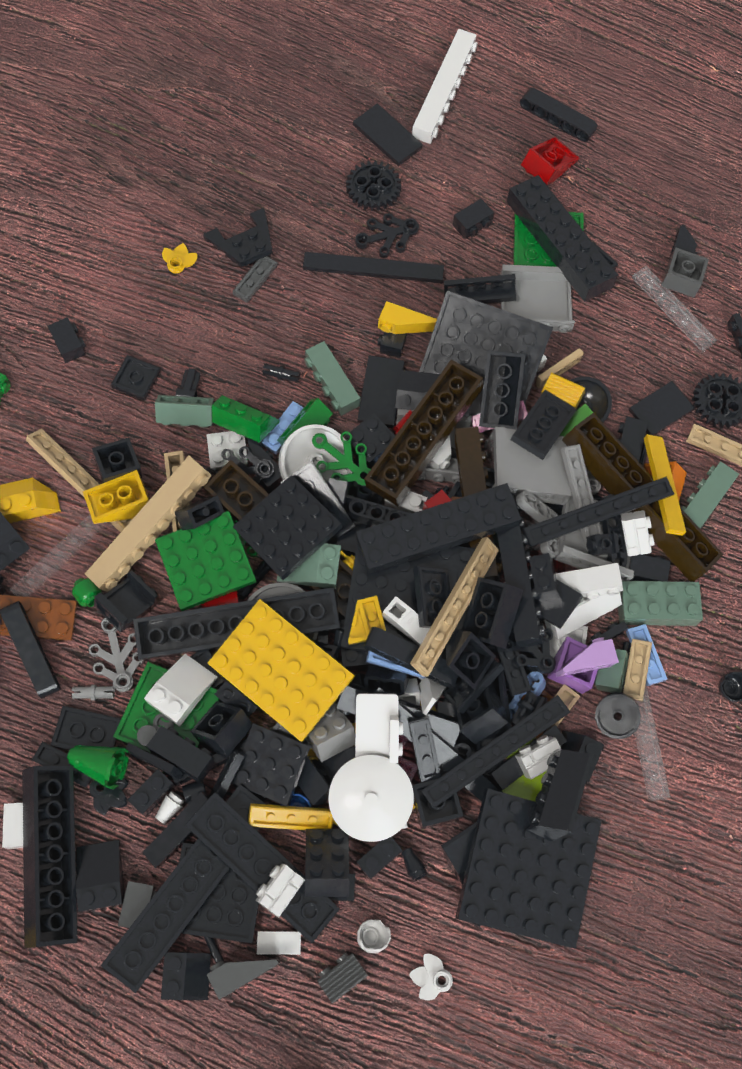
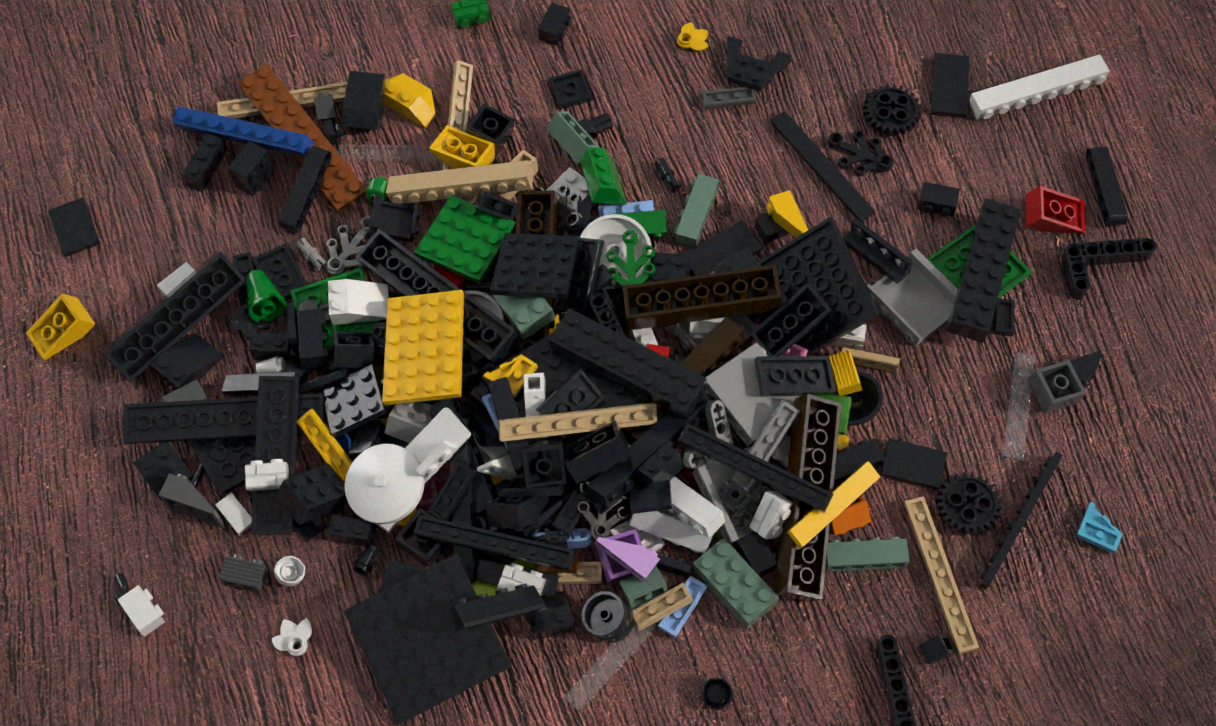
camera: 55 degrees right, 5 degrees down
(596, 176) = (1099, 257): none -> black beam

